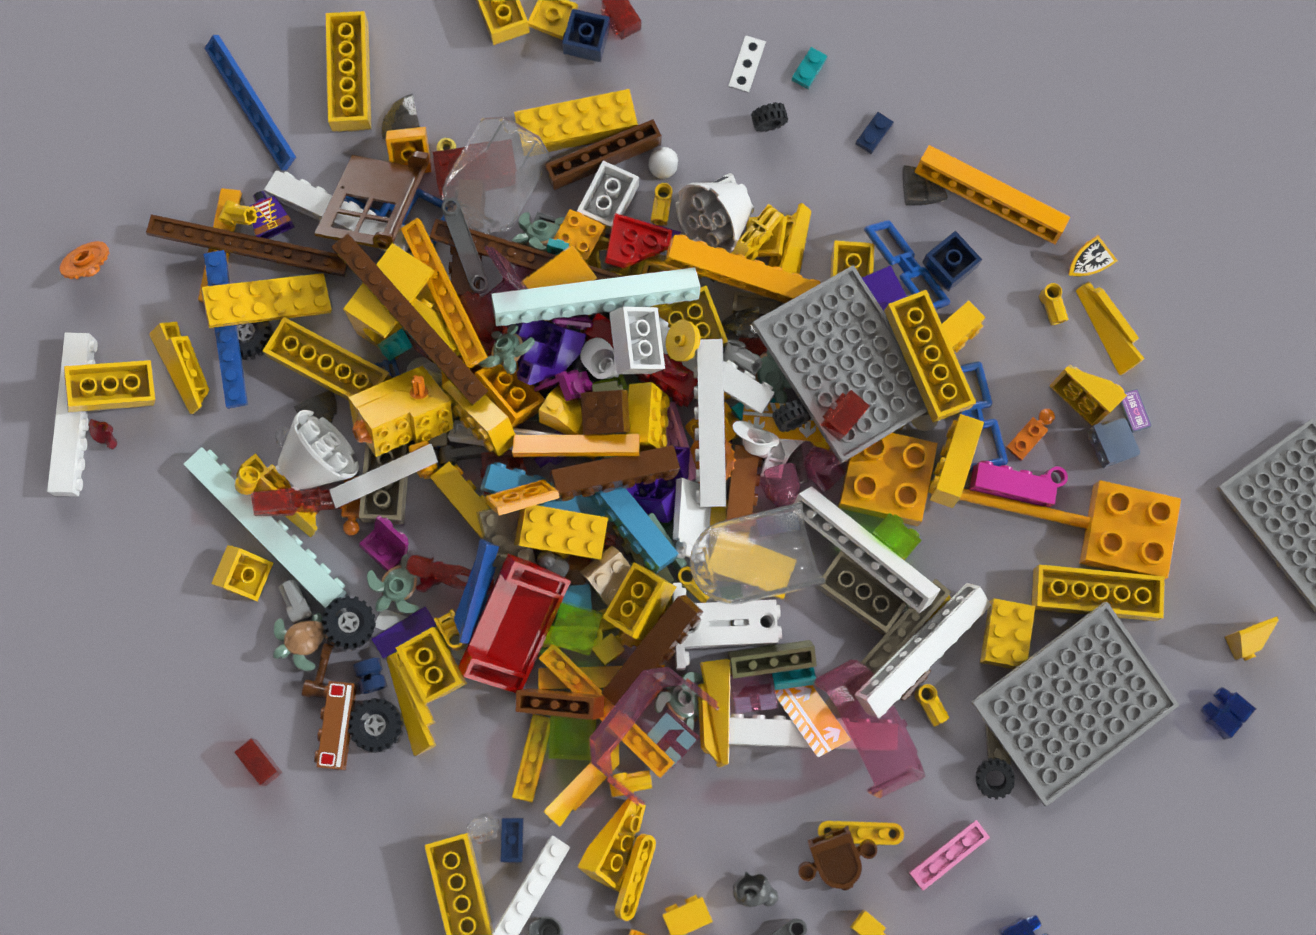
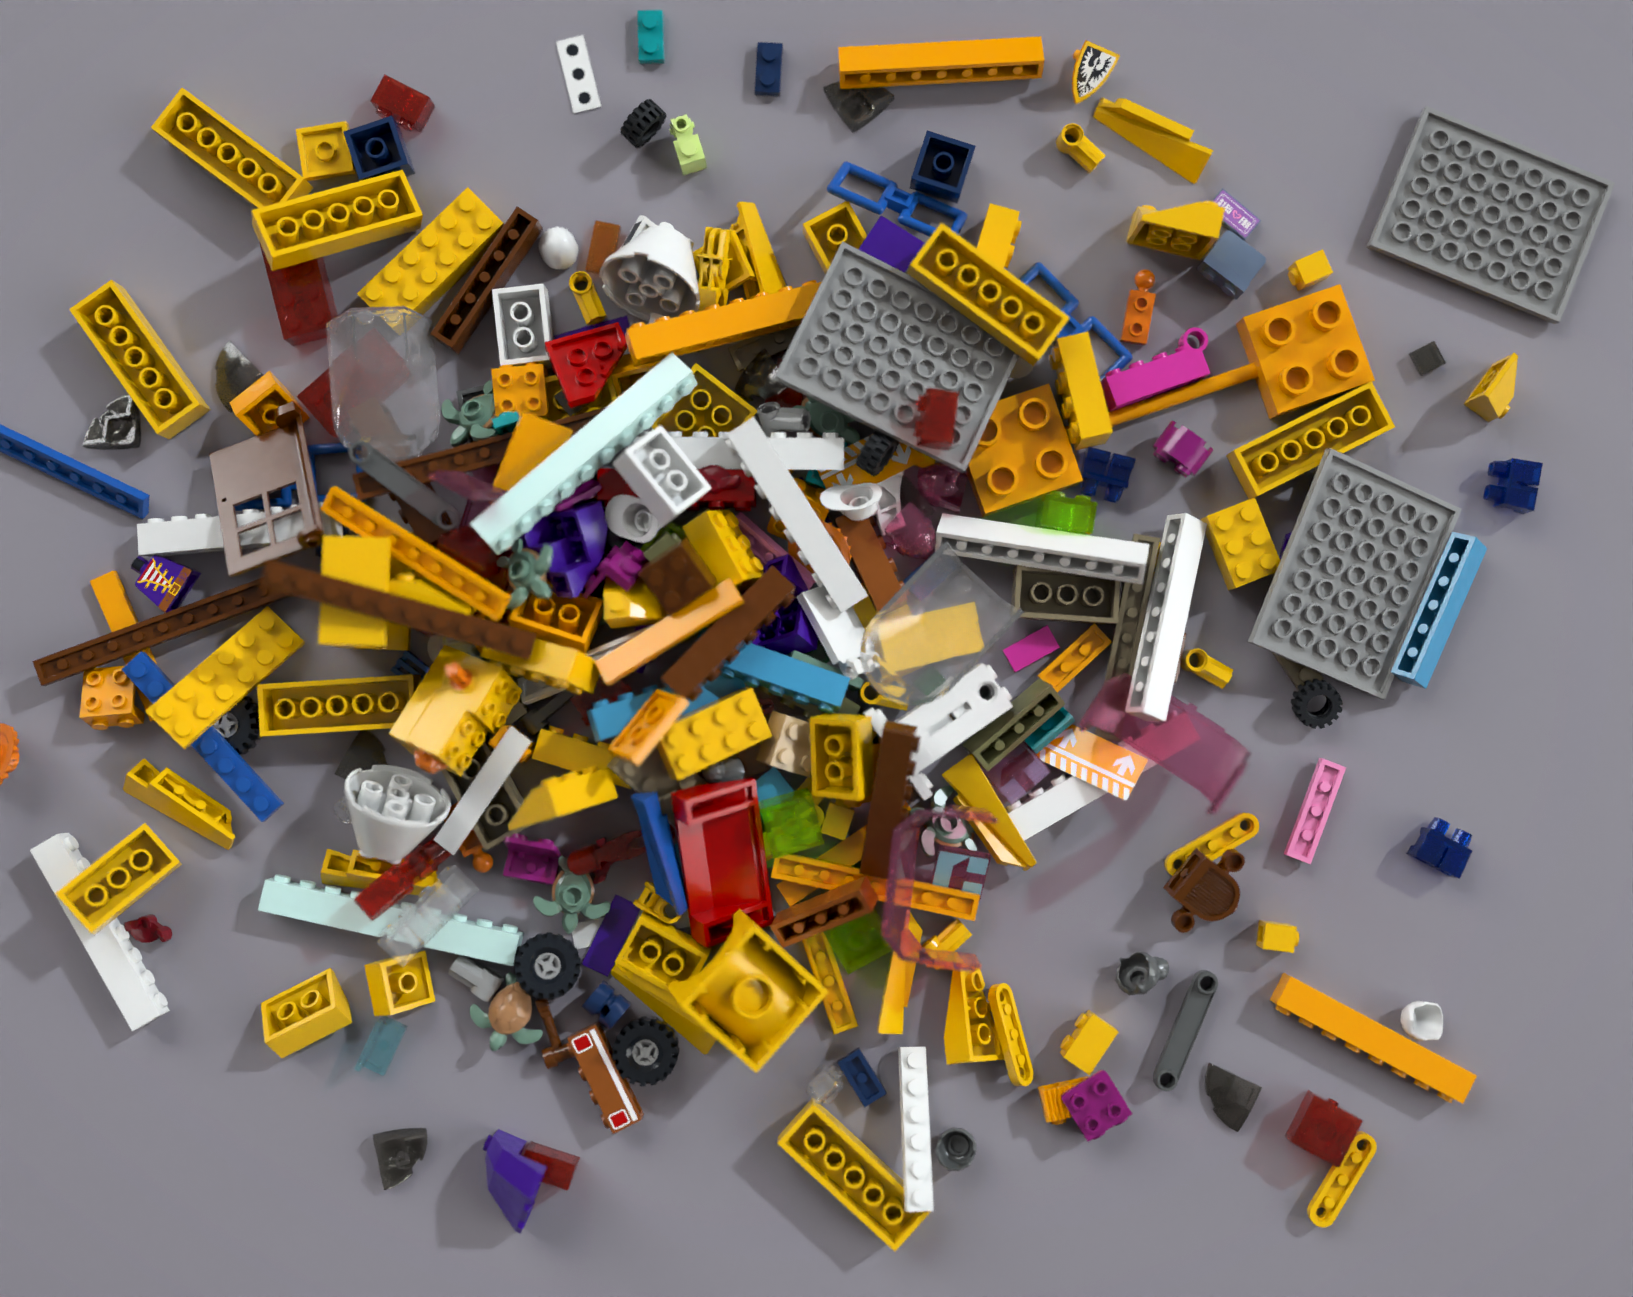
camera: 30 degrees left, 10 degrees up
(163, 689) = (398, 1153): none -> clear smoke brick
(166, 553) = (305, 1013): none -> yellow slope
(181, 269) = (109, 699): none -> light orange bracket
(201, 607) = (381, 1045): none -> clear light blue panel
(228, 754) = (511, 1177): none -> dark purple brick
(236, 214) = (127, 601): yellow piece -> none
(247, 480) = (338, 885): yellow wheel -> none
(292, 536) = (428, 915): none -> clear brick
(304, 104) = (116, 428): none -> clear smoke brick
(395, 344) = (400, 641): teal plate -> none
(435, 512) = (565, 795): none -> yellow slope
(445, 142) = (302, 374): light yellow plate -> none
(474, 724) = (750, 993): none -> yellow piece
(480, 86) = (302, 300): none -> clear red brick
(532, 58) = (336, 219): none -> yellow brick
(682, 340) = (711, 444): yellow plate -> none
(696, 174) = (602, 245): none -> clear orange tile
(789, 148) = (687, 145): none -> yellowish green brick
(816, 616) = (1030, 648): none -> dark pink tile
(843, 641) = (1075, 657): none -> light orange plate
(948, 535) = (1115, 477): none -> clear blue hips
(1003, 543) = (1182, 449): none -> magenta brick
(1122, 766) = (1439, 609): none -> dark azure brick
(1166, 478) = (1309, 270): none -> yellow brick
(1215, 588) = (1427, 358): none -> clear smoke tile

